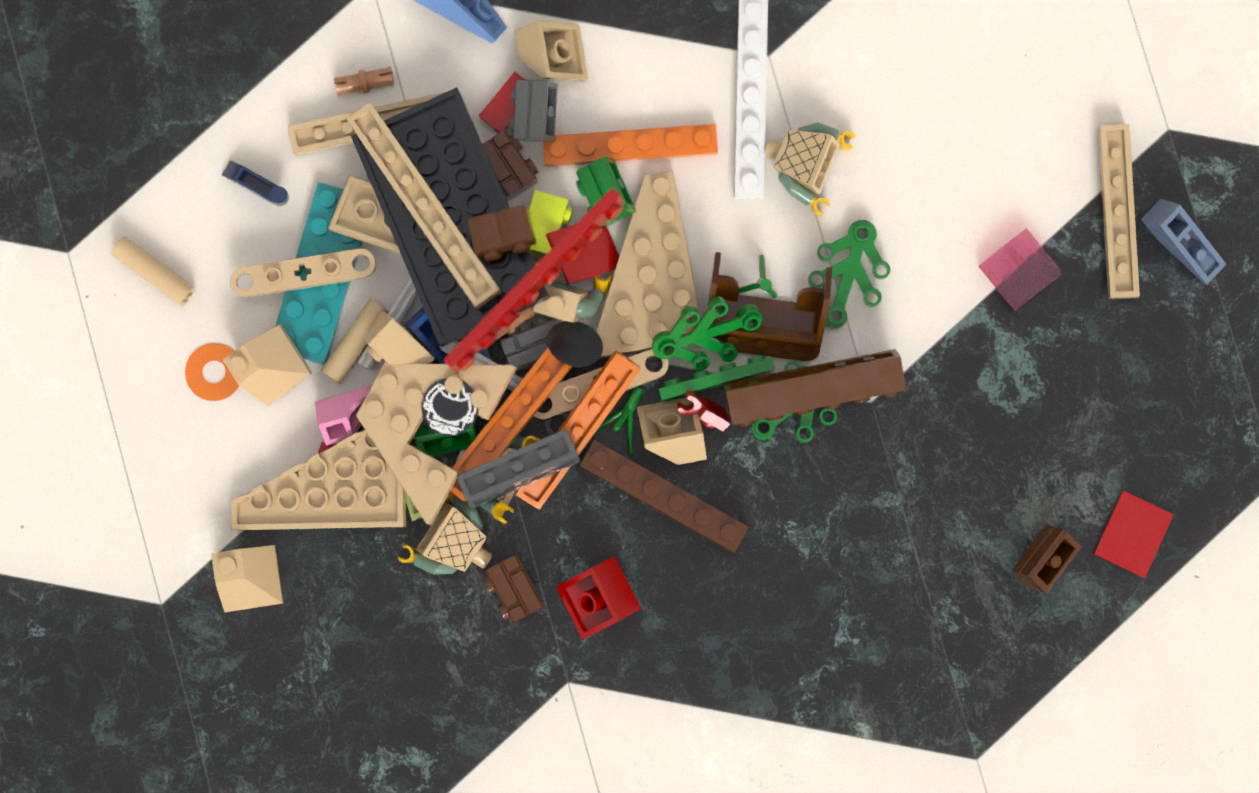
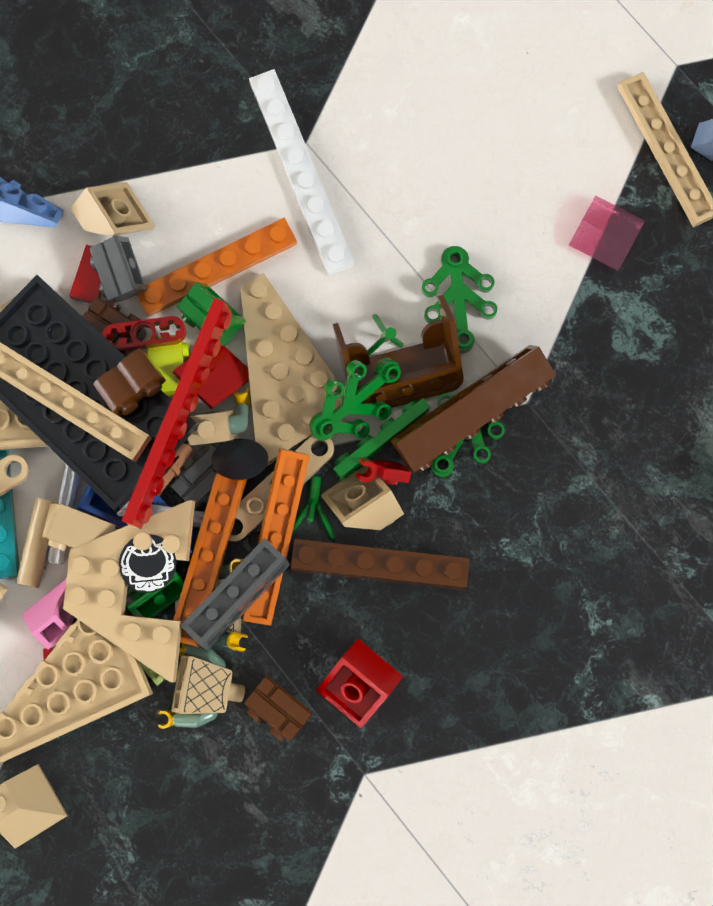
camera: 25 degrees left, 5 degrees down
(557, 185) = (164, 325): none -> red beam
(806, 159) = (377, 215): tan torso -> none

